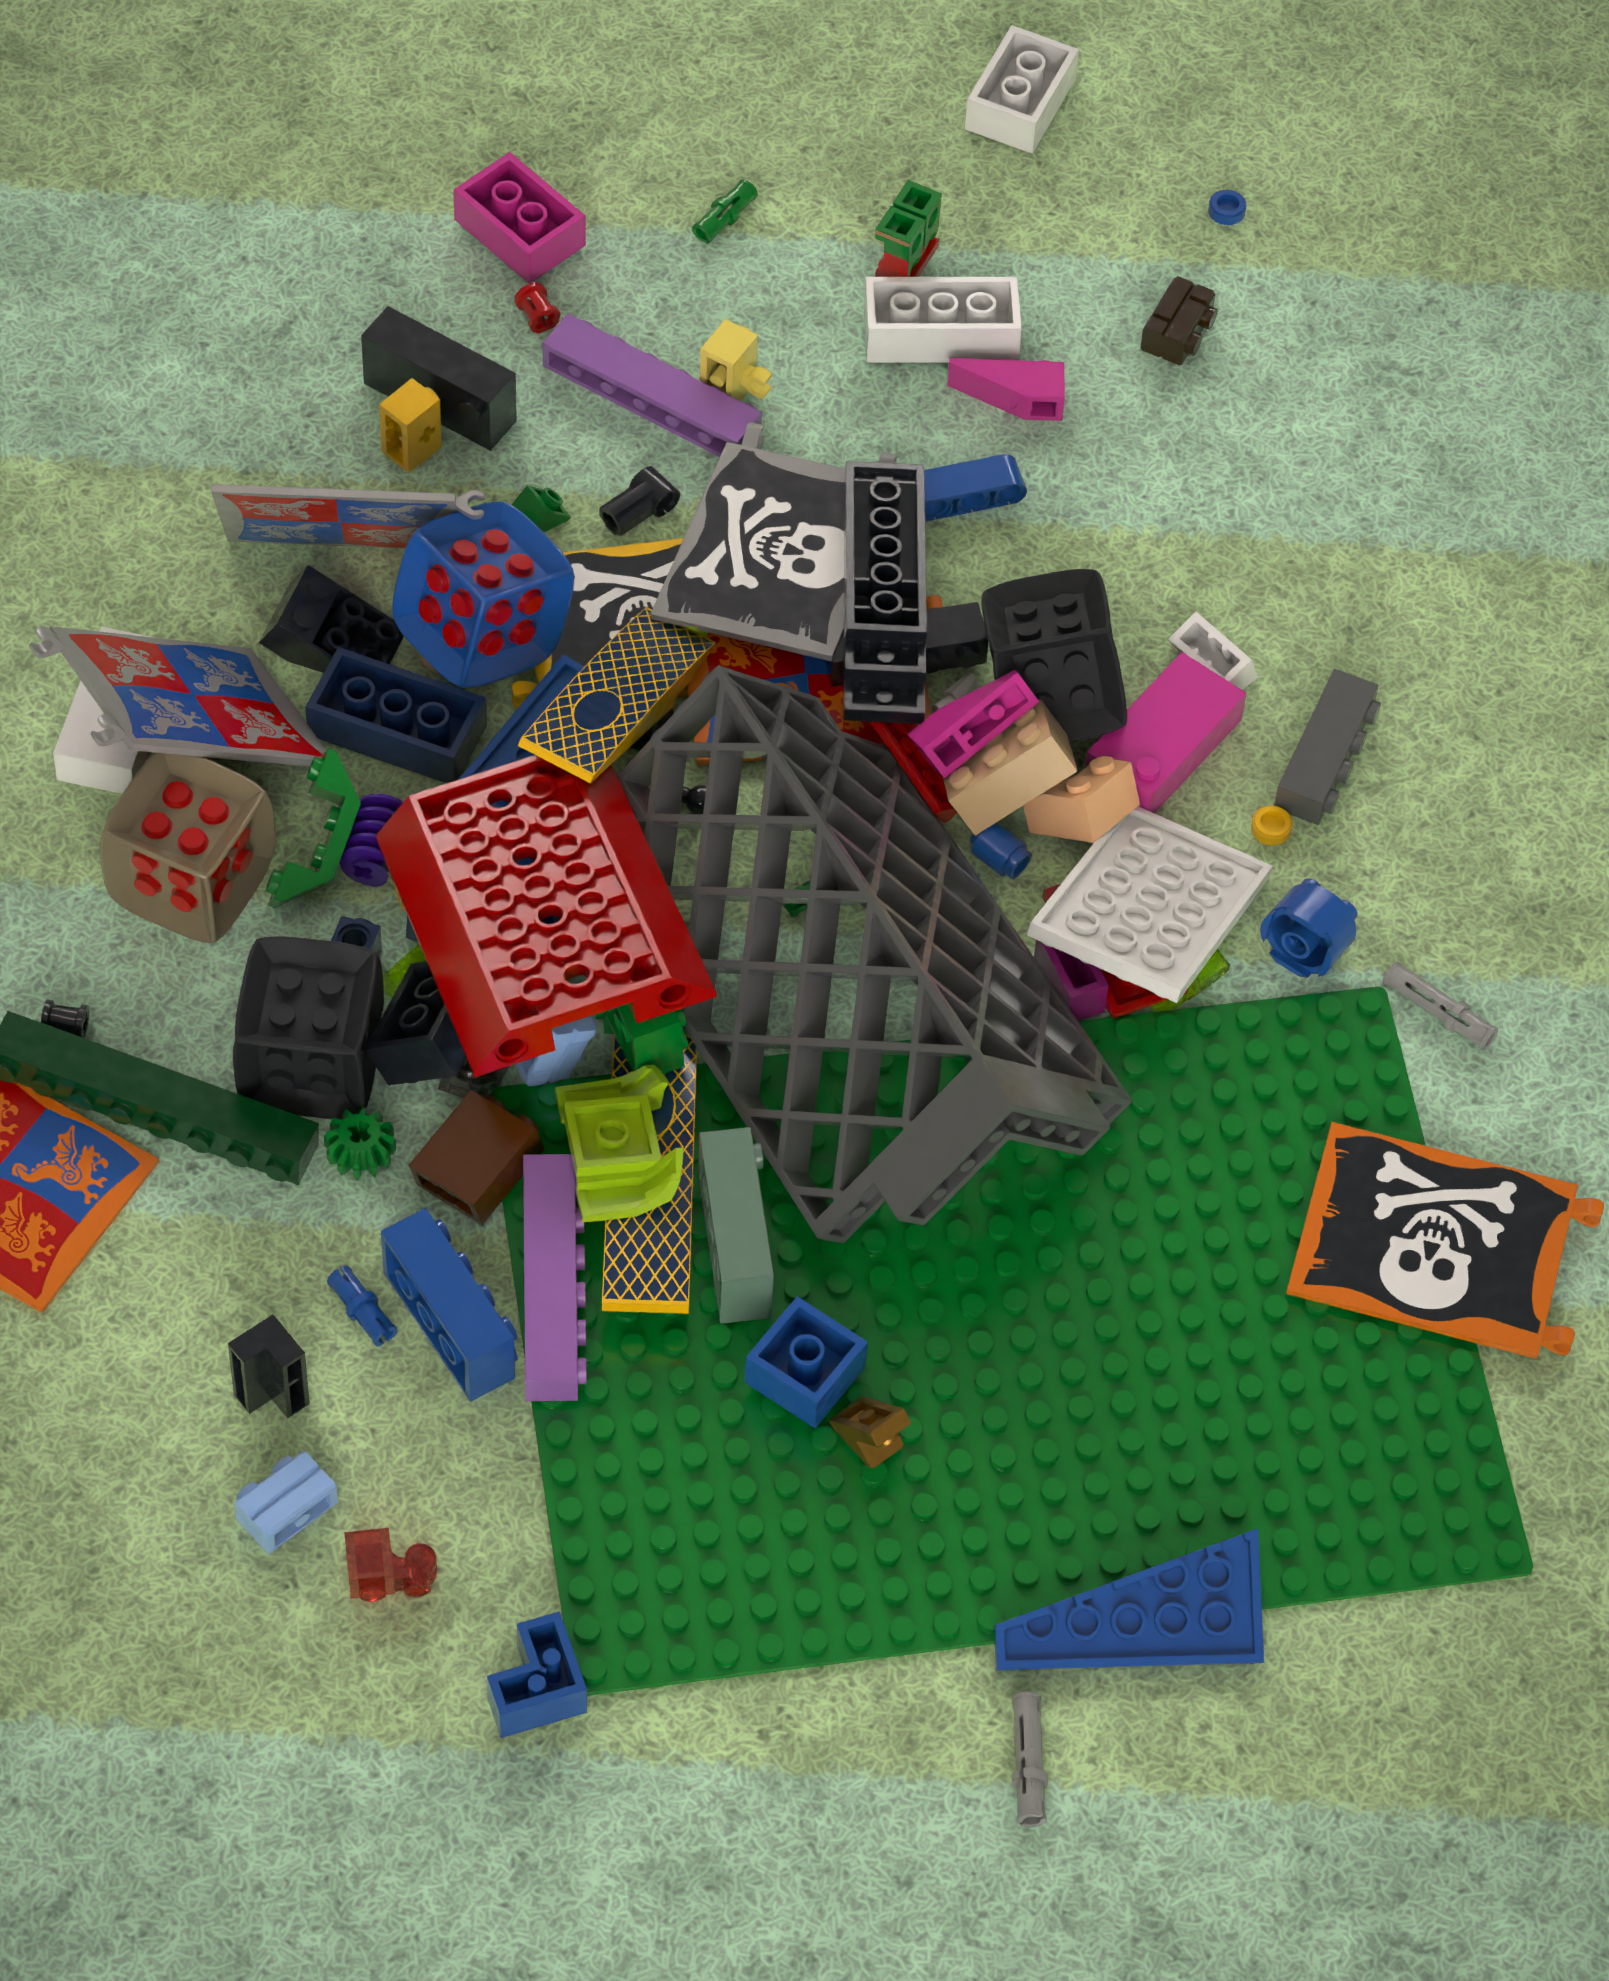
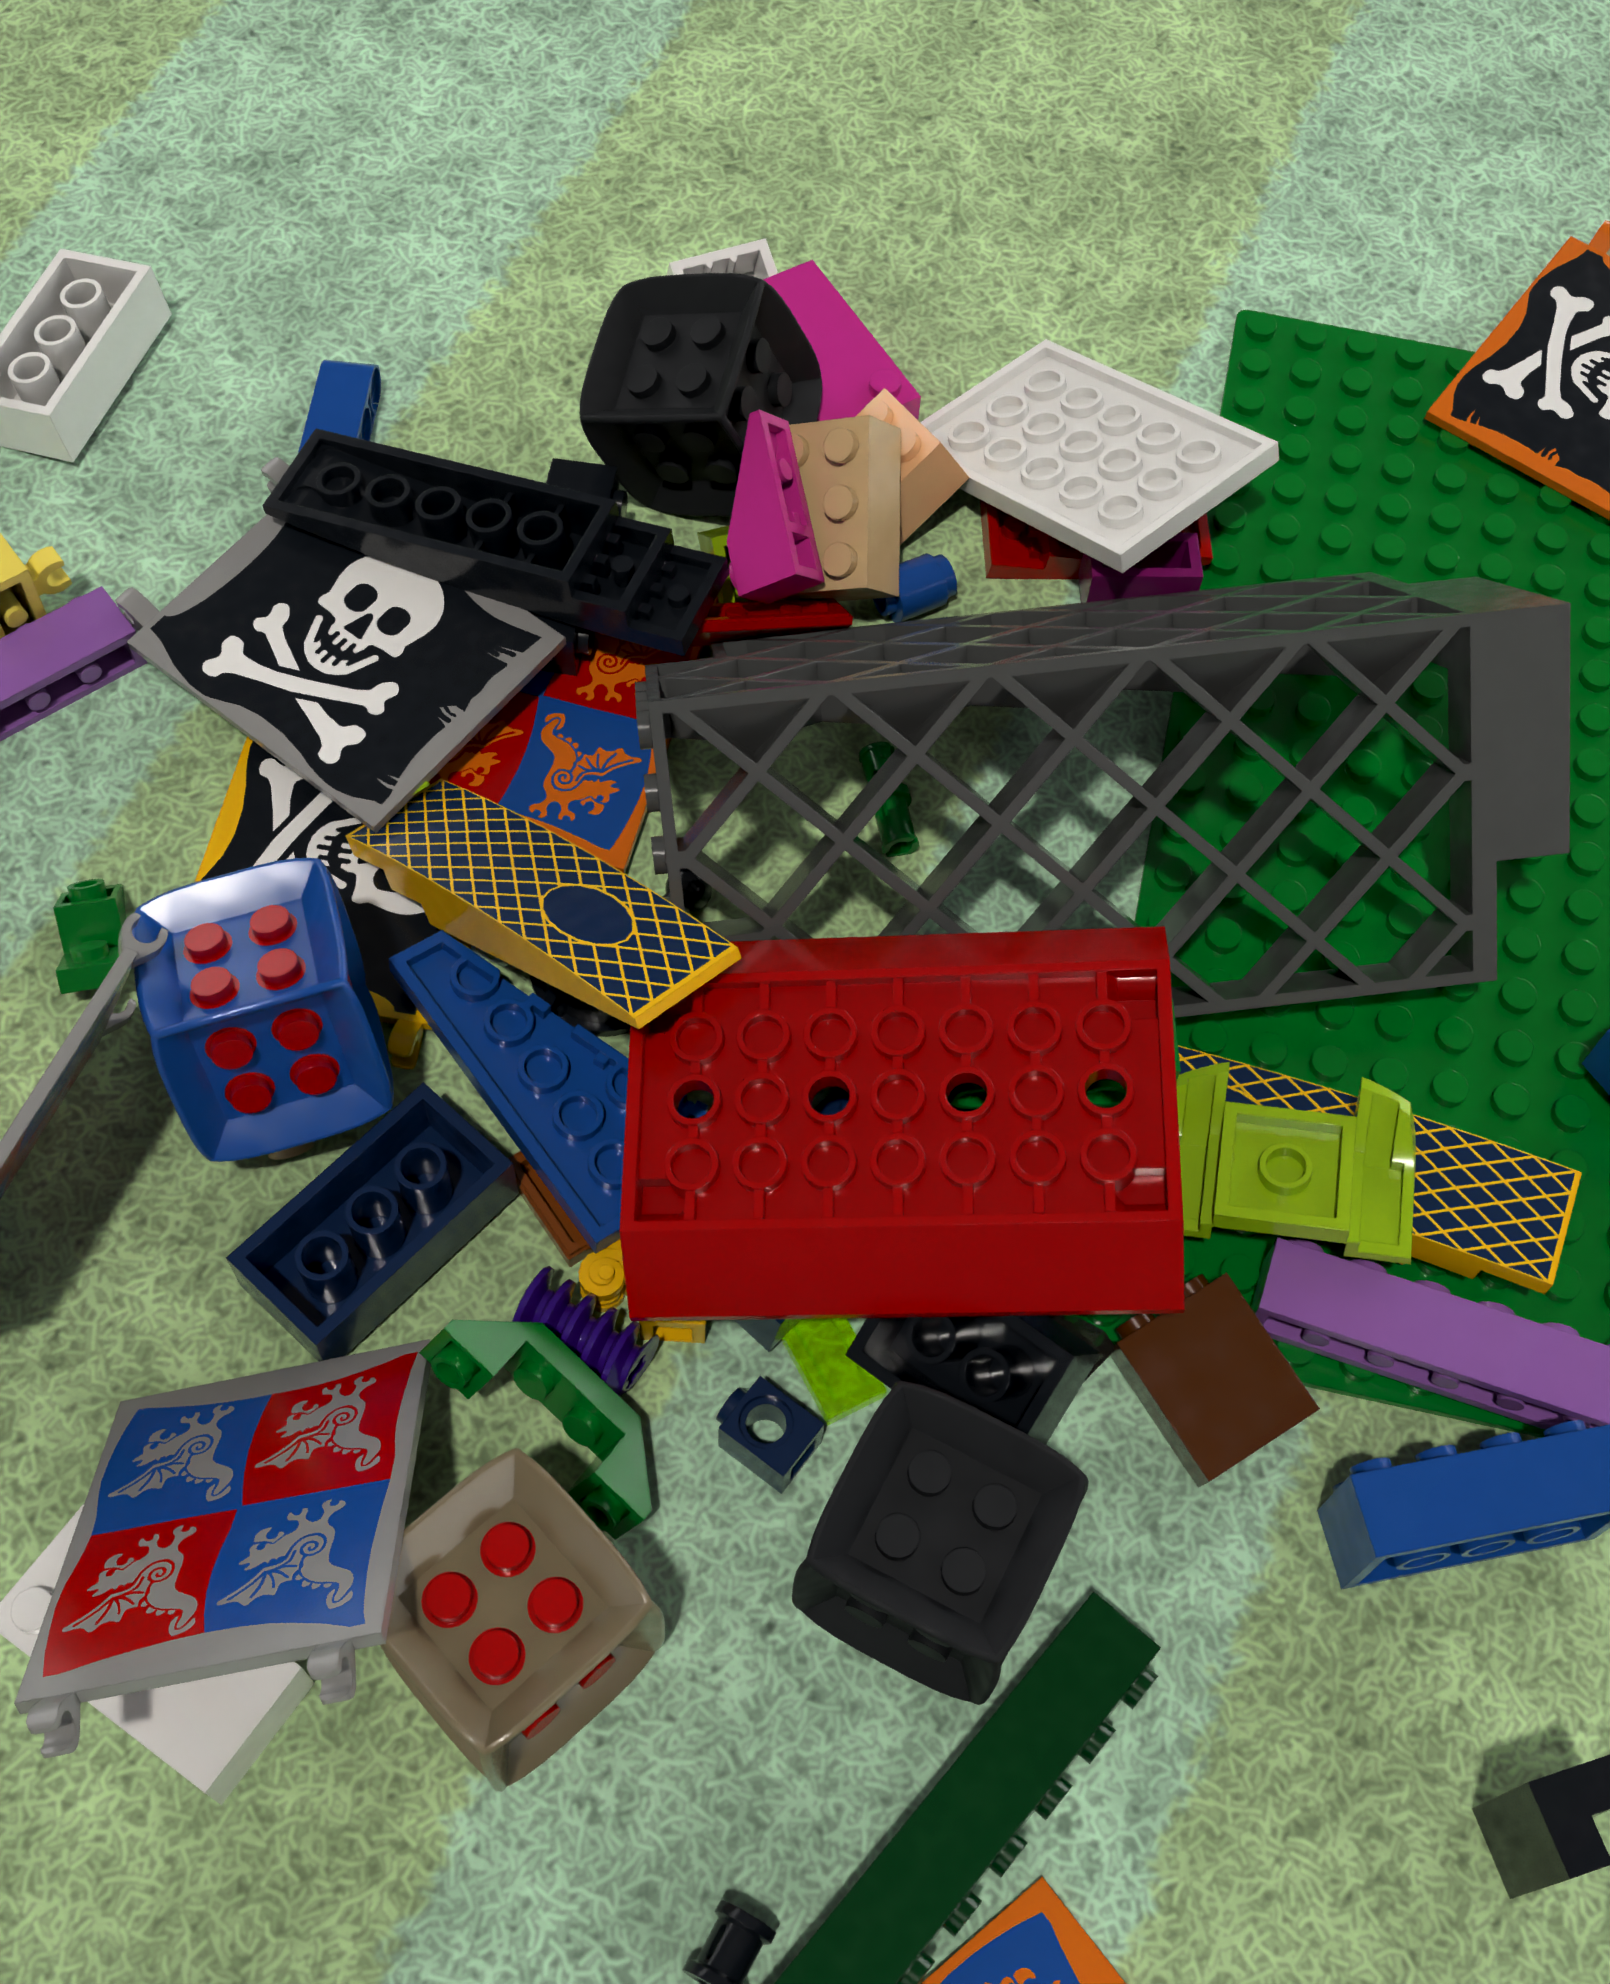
camera: 70 degrees left, 5 degrees up
(320, 617) = (149, 1271): black slope -> none
(360, 1143) = (1124, 1567): green gear -> none
(362, 1305) = (1407, 1640): blue pin -> none
(646, 496) = (151, 781): black piece -> none
(735, 1224) = (1463, 1066): sand green brick -> none
(1016, 386) = (215, 323): dark pink slope -> none
(1179, 320) = (212, 143): dark brown brick -> none
(1227, 207) = (67, 51): blue tile -> none
(1271, 825) = (977, 326): yellow tile -> none
(1309, 929) = (1164, 328): blue brick -> none
(1326, 747) = (899, 233): dark grey brick -> none
(1479, 1030) = (1333, 247): light grey pin -> none

